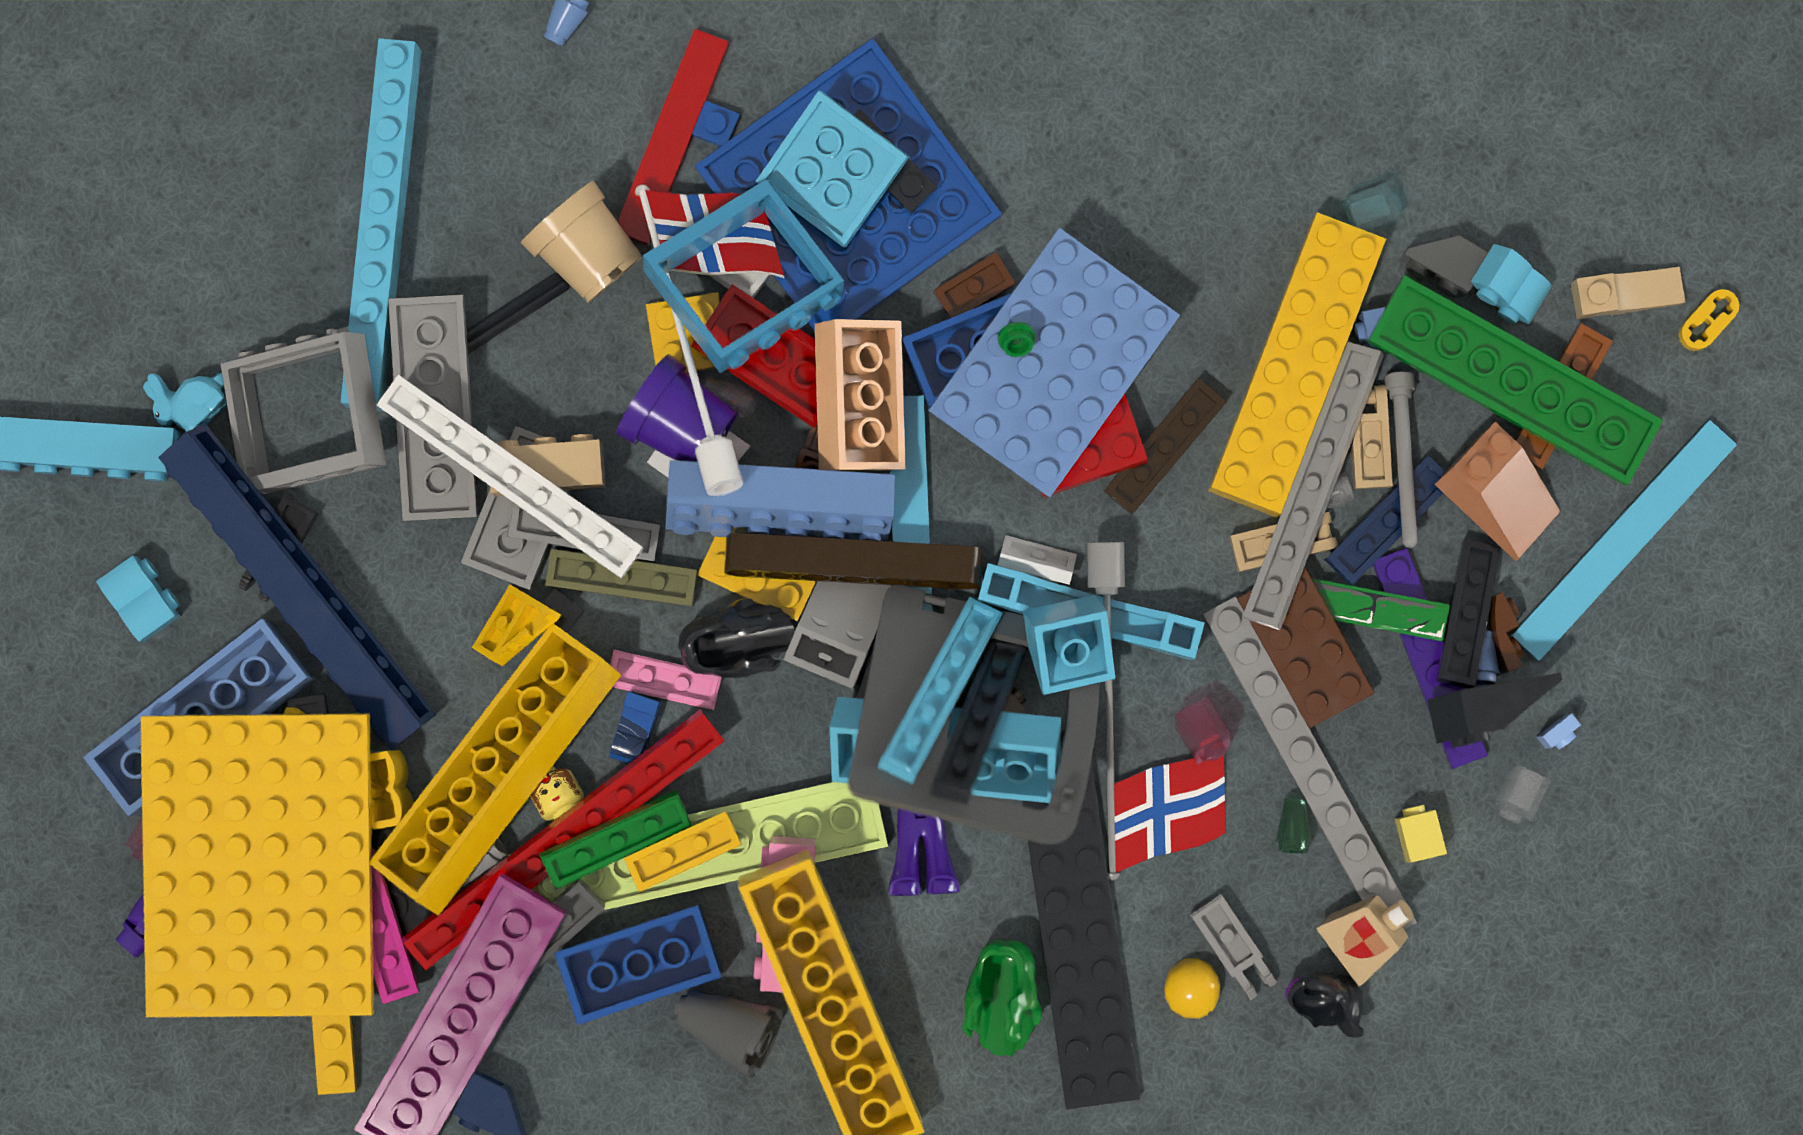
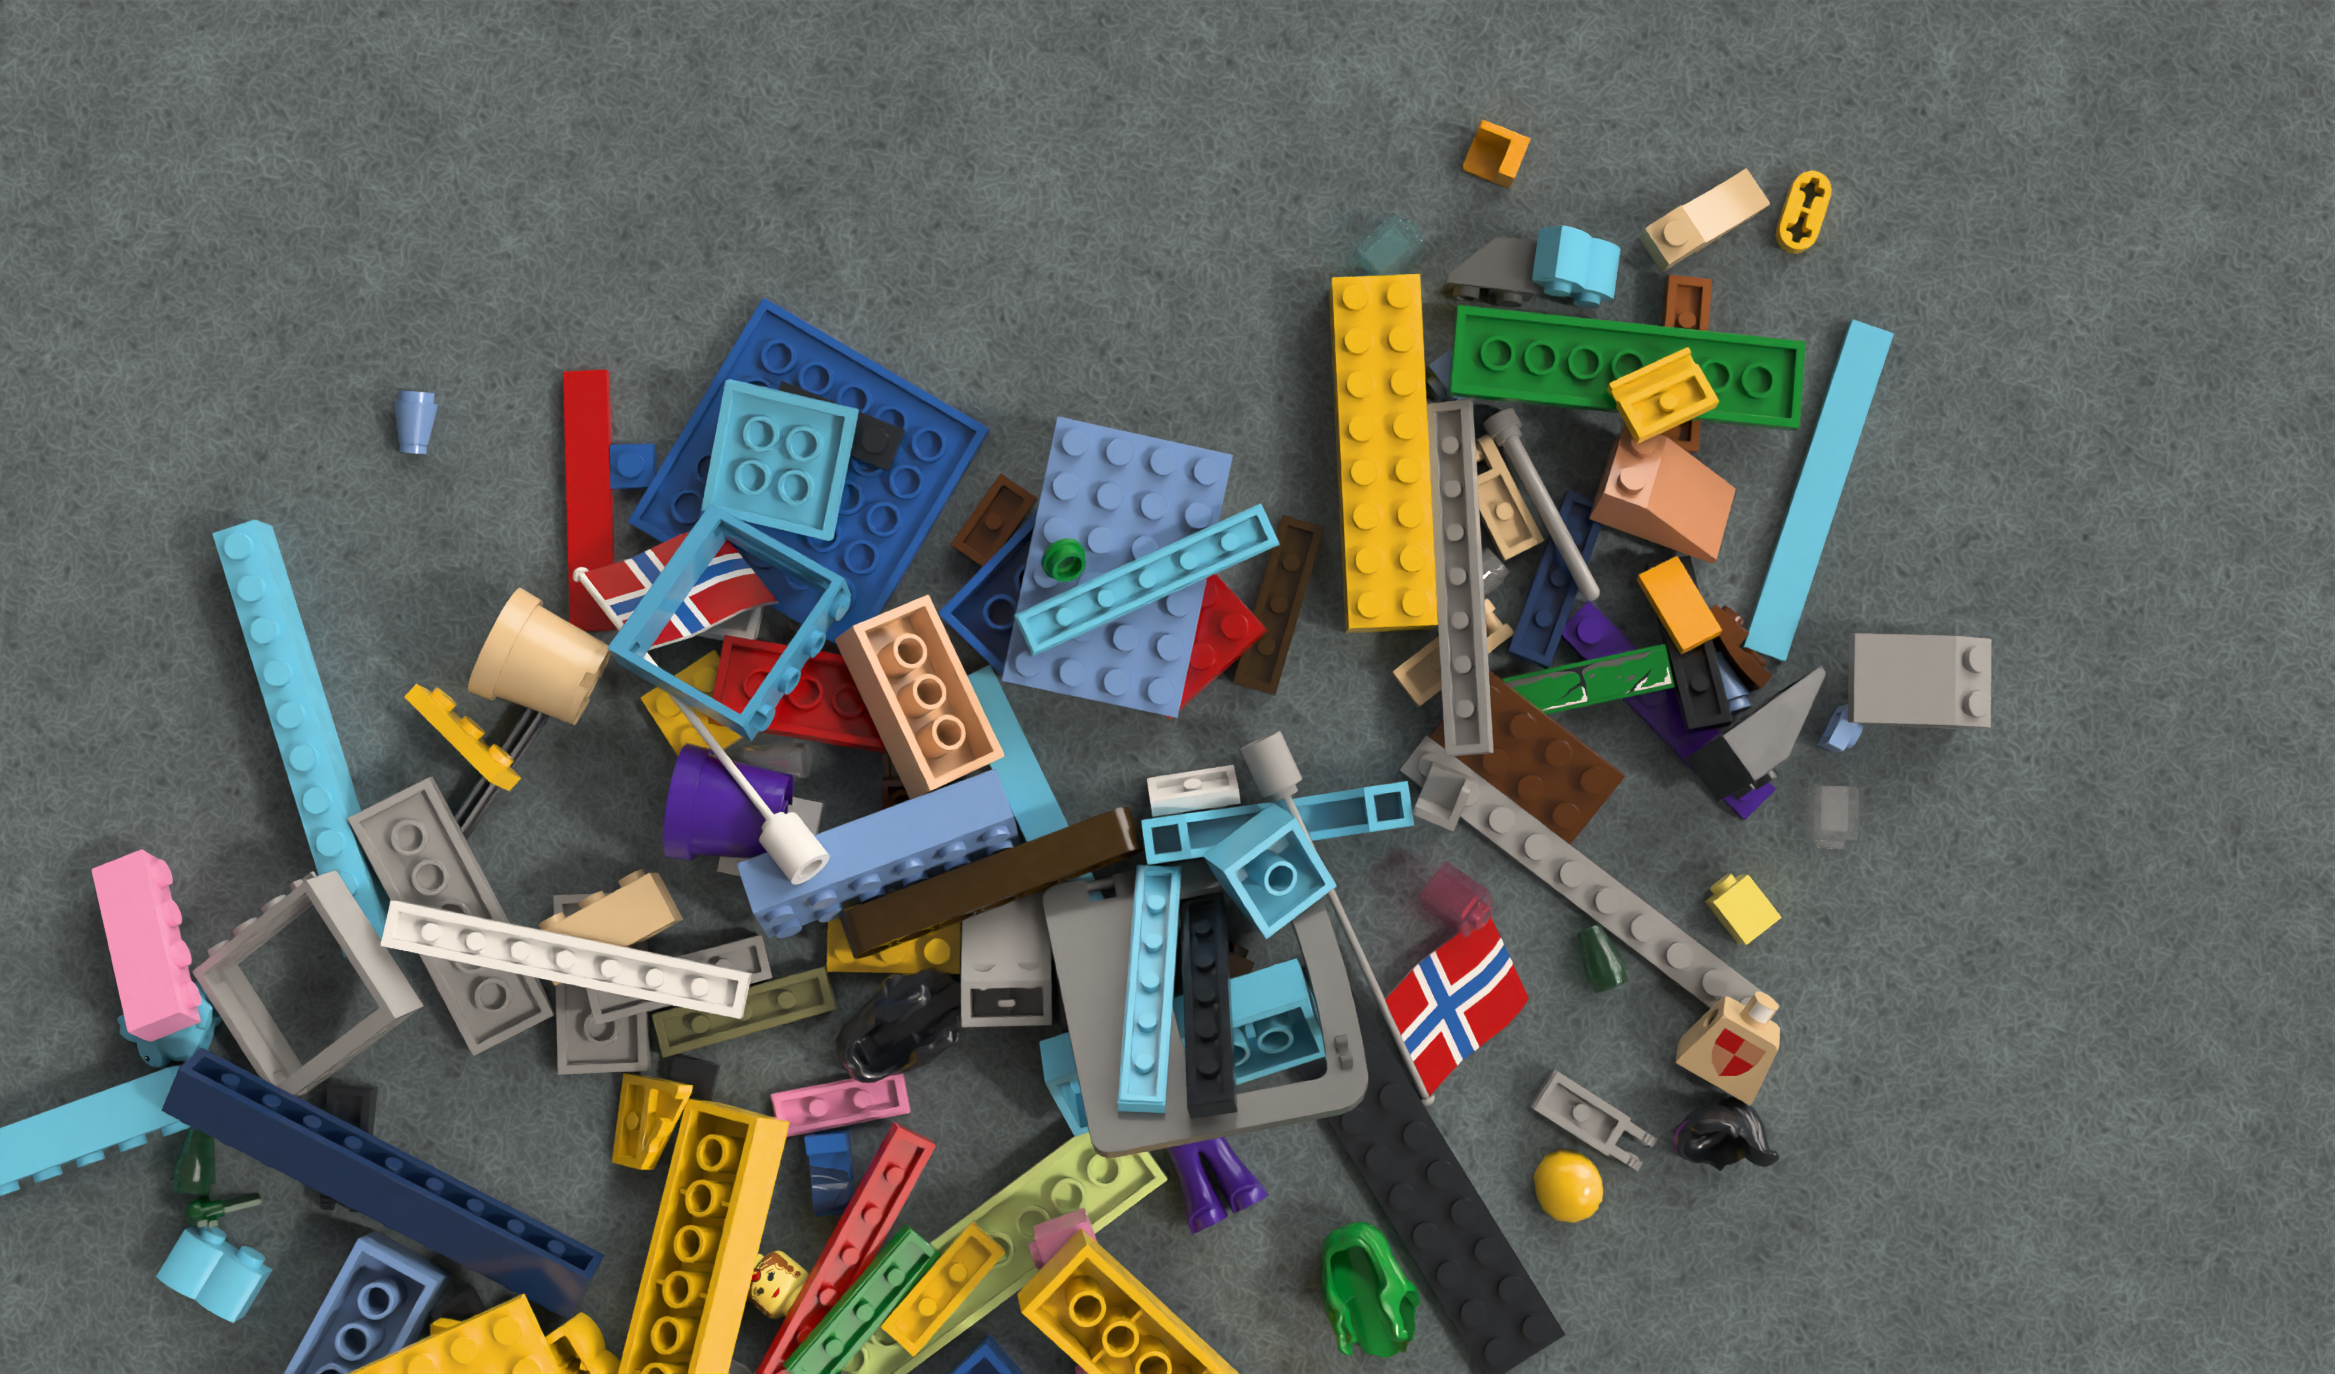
camera: 30 degrees left, 0 degrees up
(150, 549) = (205, 1212): none -> dark green piece
(158, 510) = (195, 1164): none -> clear green cone
(196, 329) = (146, 945): none -> bright pink brick
(501, 275) = (464, 736): none -> yellow plate
(1072, 381) = (1146, 579): none -> medium azure tile
(1227, 647) = (1443, 796): none -> light grey panel
(1474, 580) = (1679, 605): none -> light orange tile
(1487, 171) = (1496, 154): none -> light orange panel
(1531, 413) = (1662, 395): none -> yellow plate
(1634, 720) = (1919, 681): none -> light grey slope

